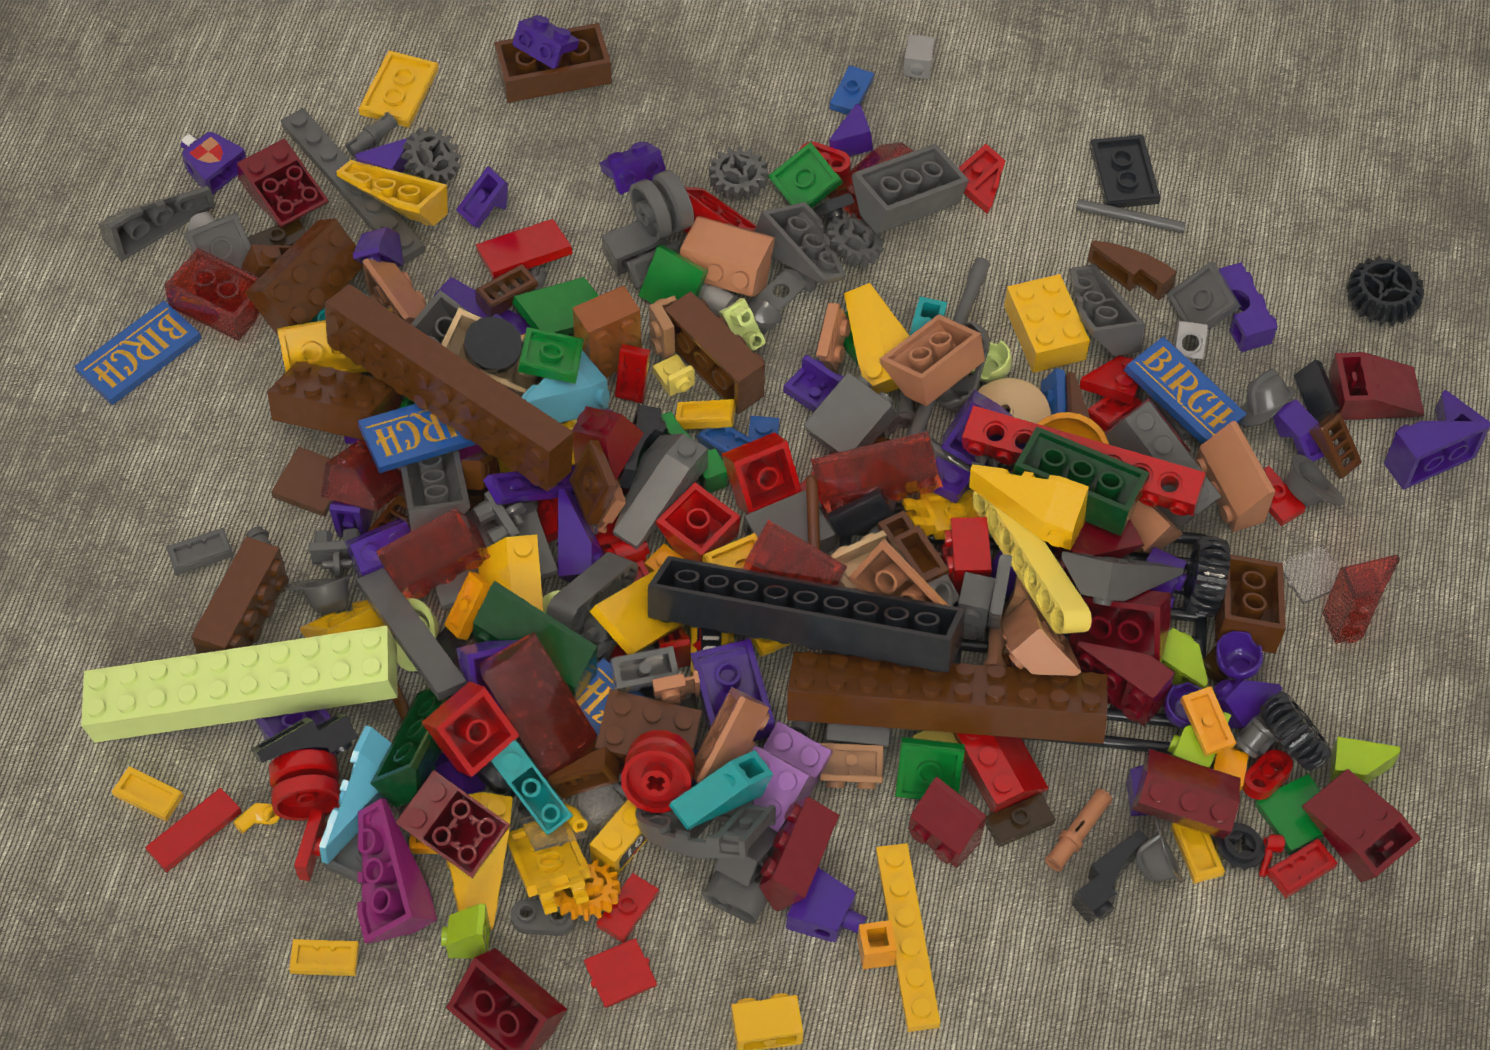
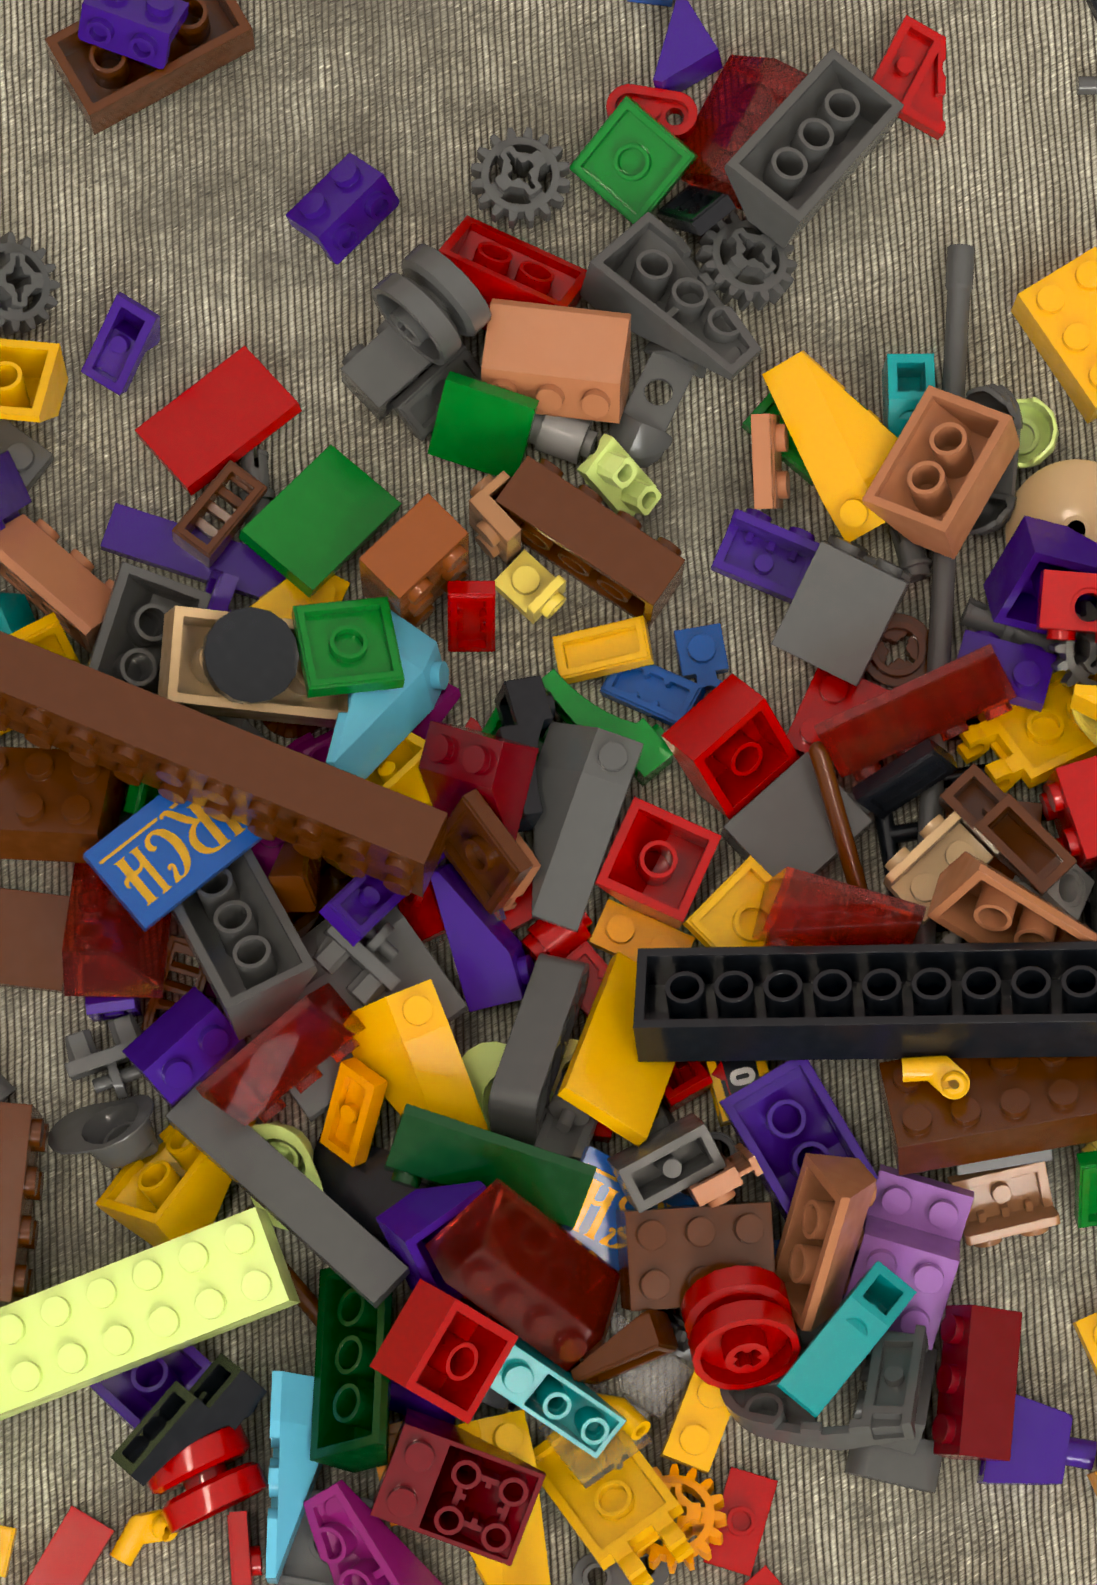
camera: 20 degrees left, 20 degrees up
(827, 656) = (939, 1072): none -> yellow arm

